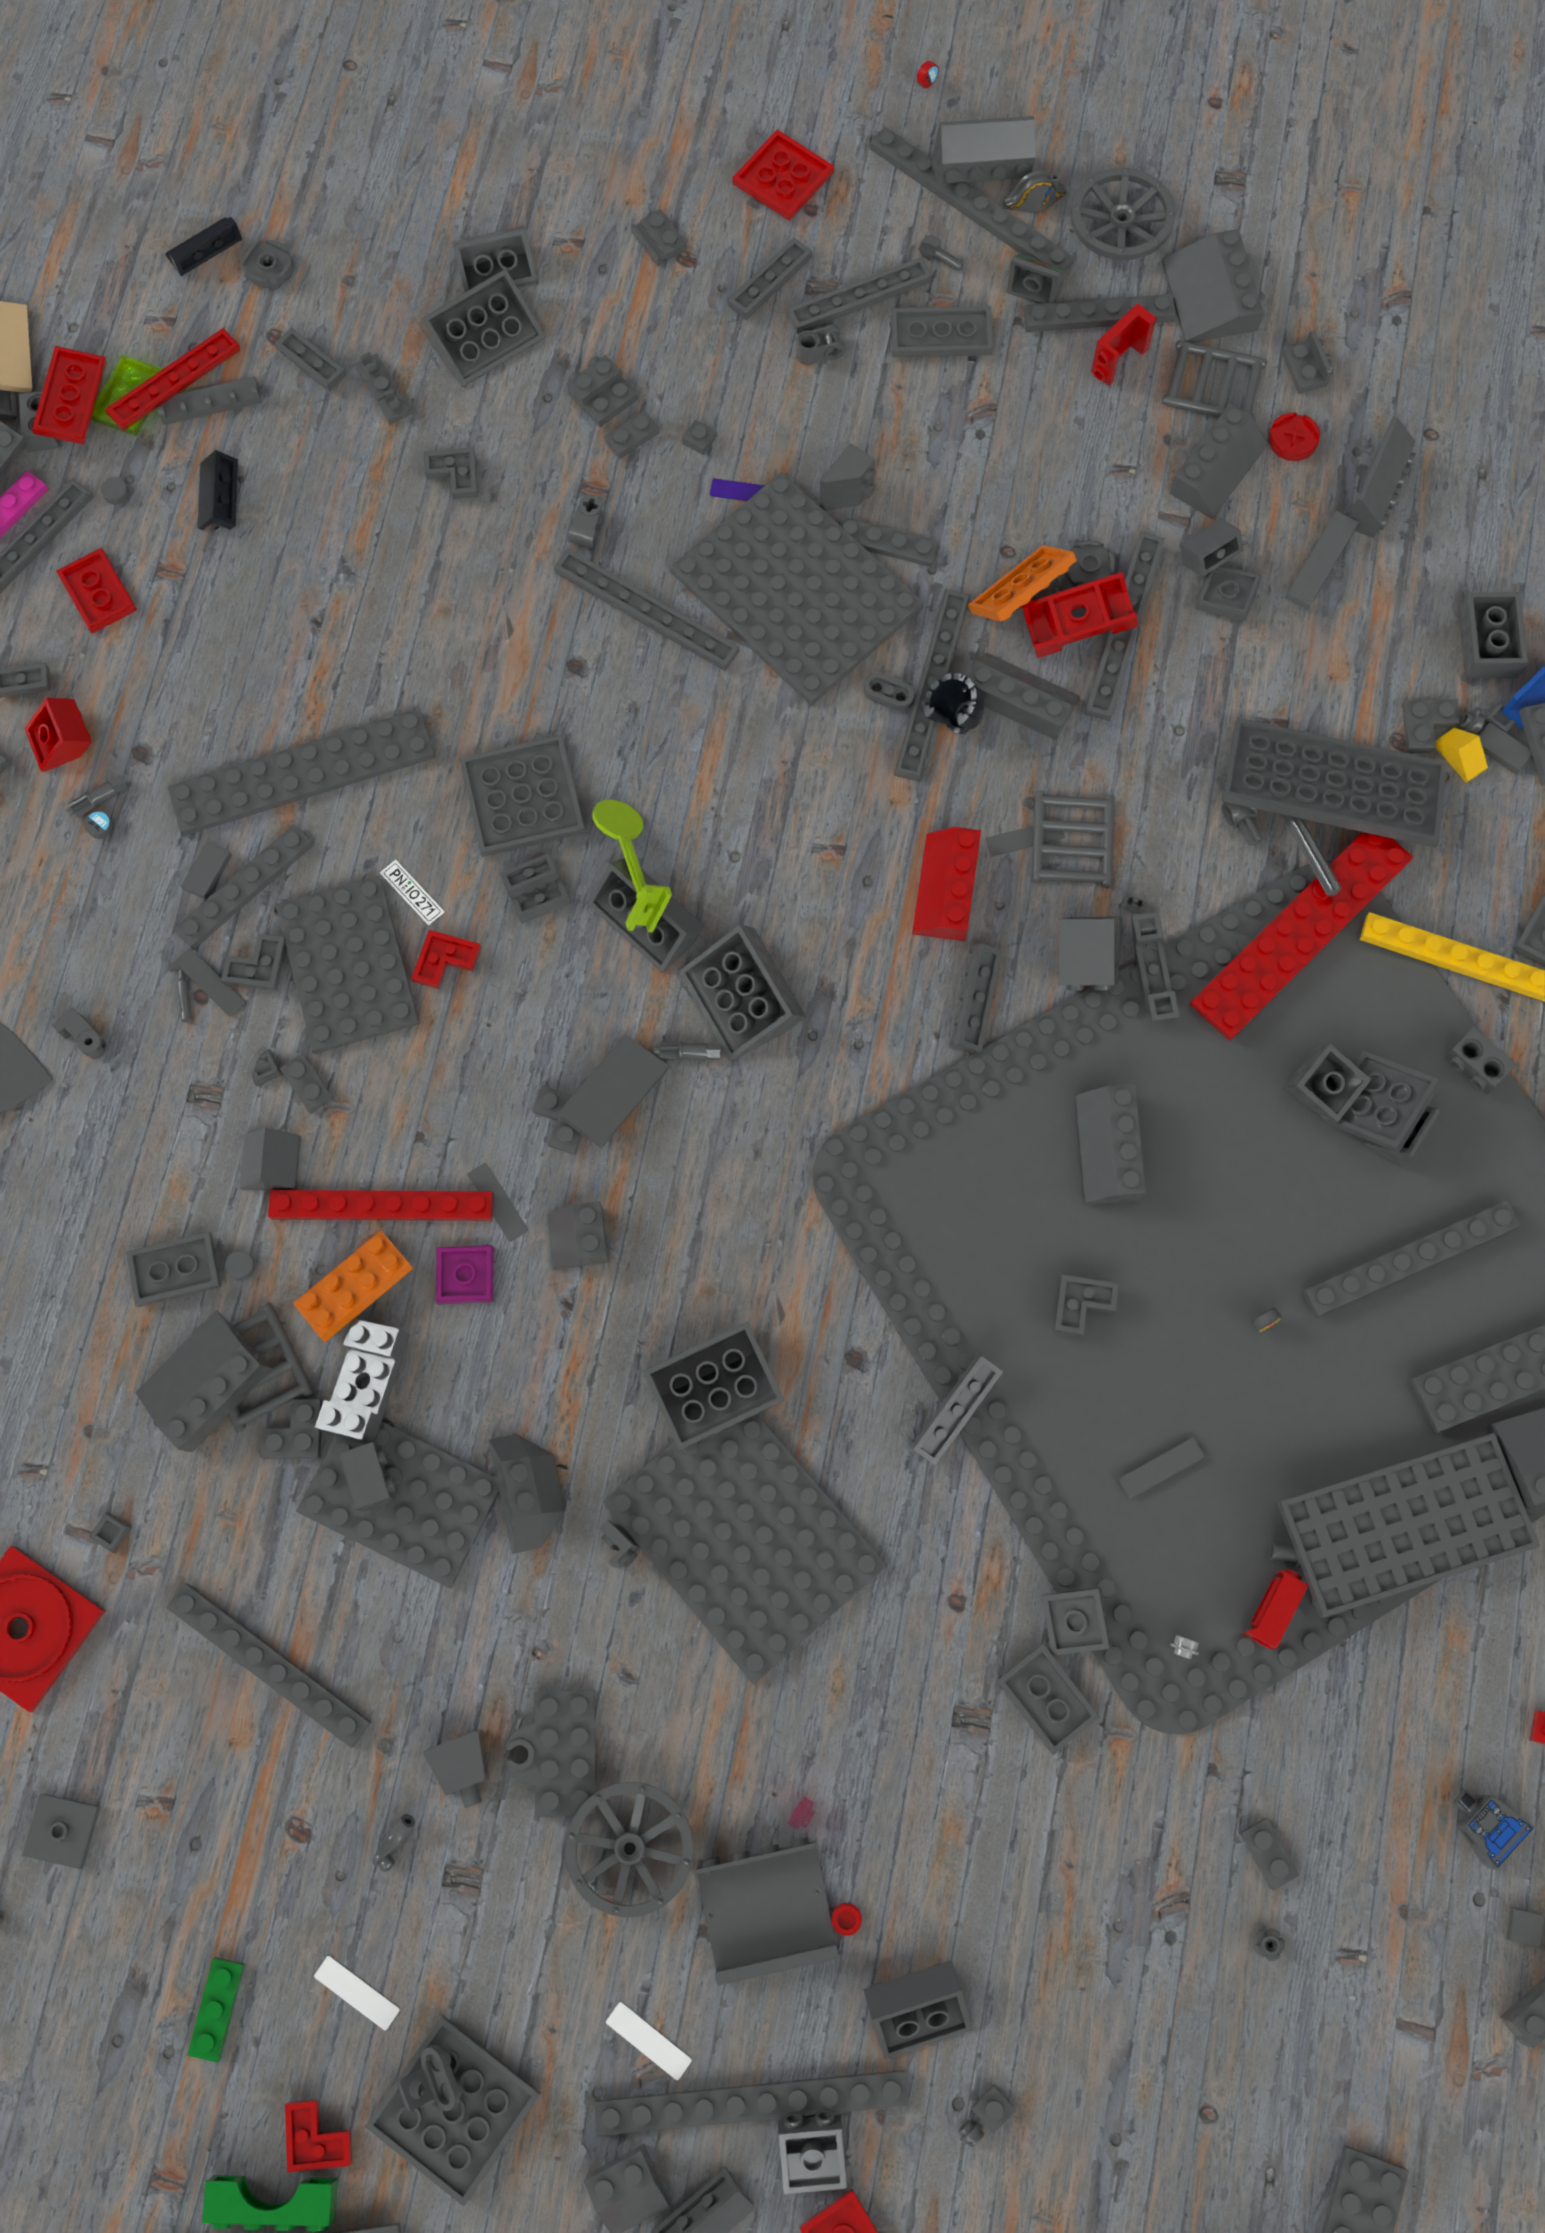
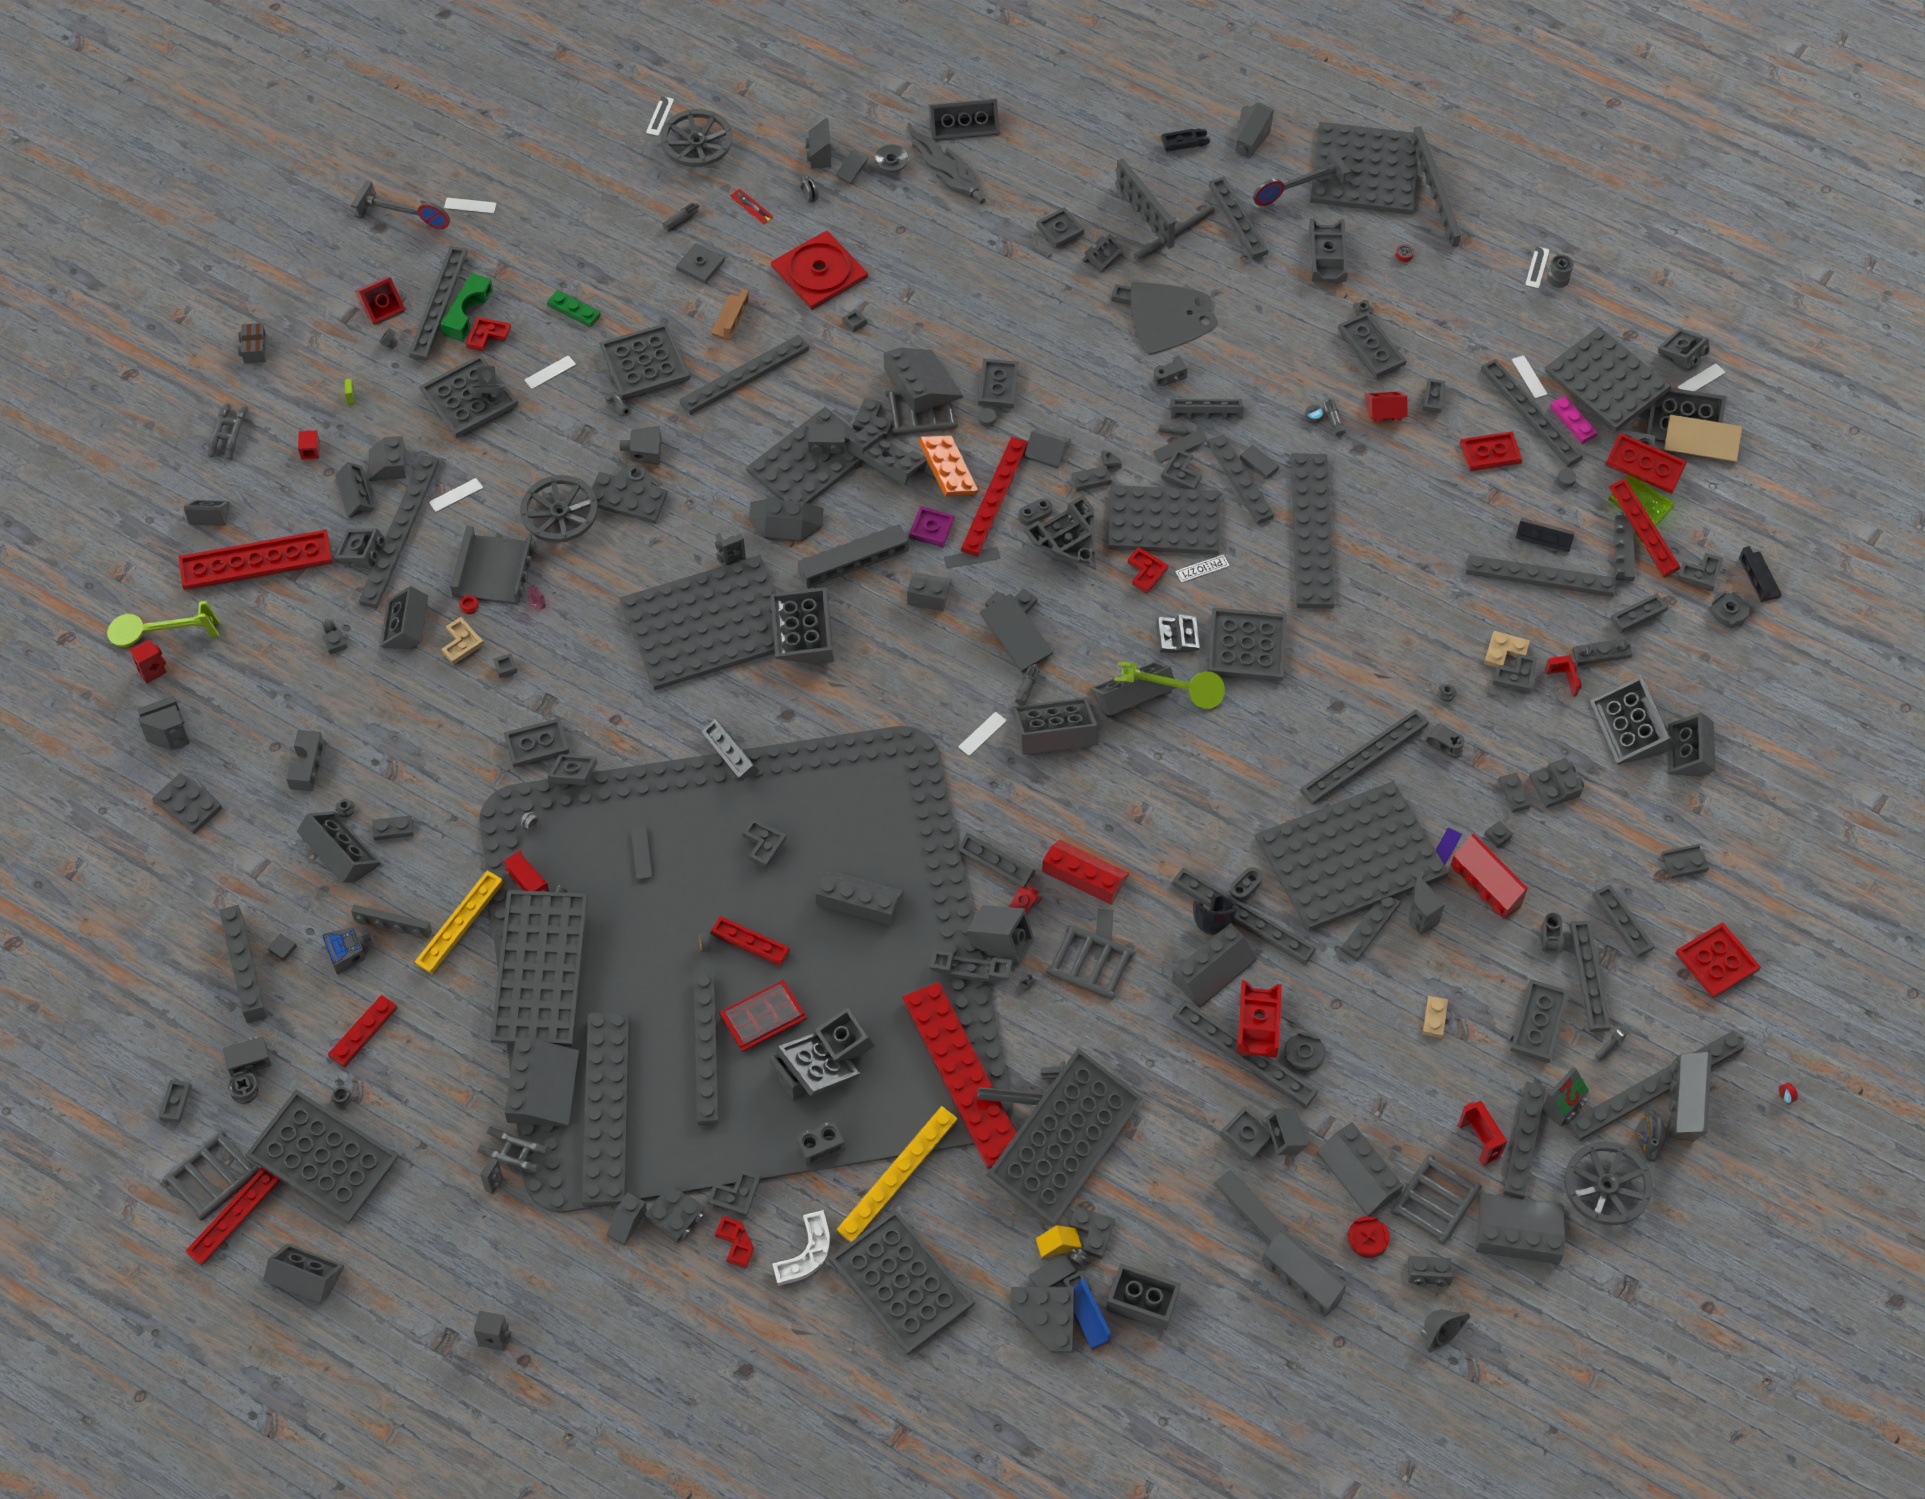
camera: 105 degrees right, 15 degrees down
(130, 966) = (1207, 406): none -> dark grey hinge
(156, 1735) = (731, 315): none -> medium nougat panel
(223, 299) = (1701, 576): none -> dark grey plate
(286, 485) = (1541, 575): none -> dark grey plate
(292, 1838) = (644, 361): none -> dark grey plate
(390, 1139) = (1036, 511): none -> dark grey plate
(416, 502) = (1504, 644): none -> tan plate
(423, 1074) = (1068, 533): none -> dark grey wedge
(432, 411) = (1564, 664): none -> red bracket
(510, 549) = (1446, 696): none -> dark grey plate
(559, 1363) = (853, 556): none -> dark grey brick
(774, 422) = (1489, 877): none -> slope
(785, 1086) = (982, 733): none -> white sticker
(918, 1890) = (464, 641): none -> tan plate
(936, 1808) = (505, 665): none -> dark grey plate
(981, 441) = (1435, 1017): none -> tan plate
(1022, 583) = (1299, 992): orange plate -> none
(1032, 938) = (1026, 898): none -> red bracket
(1194, 2049) = (304, 774): none -> dark grey arch
(1234, 1264) = (750, 941): none -> red tile
(1334, 1204) = (762, 1015): none -> clear piece
(1338, 1920) = (337, 846): none -> dark grey slope
(1372, 333) = (1442, 1327): none -> dark grey hat
(1380, 1677) = (459, 922): none -> yellow plate
(1424, 1793) = (392, 921): none -> dark grey plate

